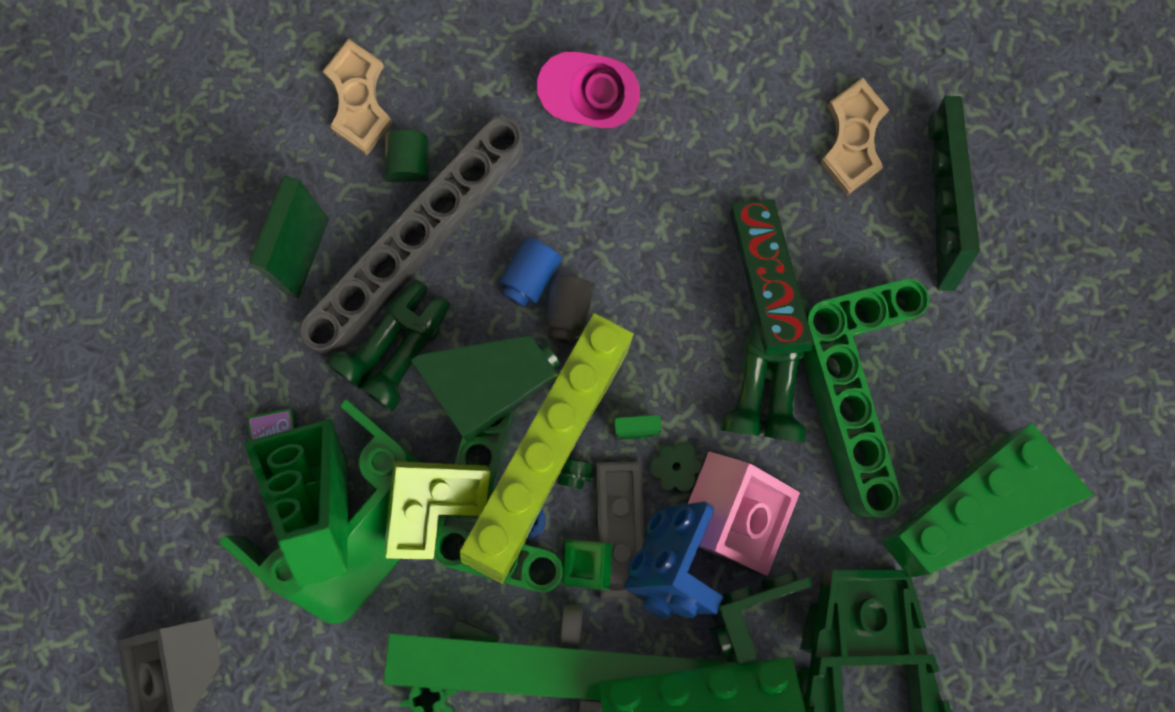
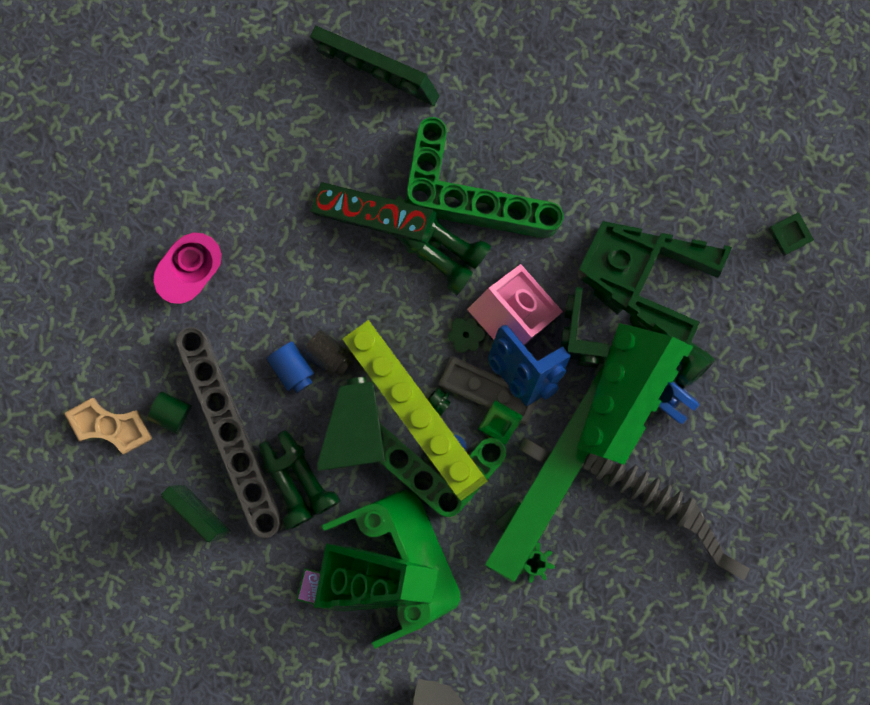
camera: 65 degrees left, 5 degrees up
(421, 494) = (407, 502): lime plate -> none
(637, 427) = (428, 347): green tile -> none
(854, 154) = (317, 114): tan tile -> none
(992, 499) = (584, 147): green wedge -> none

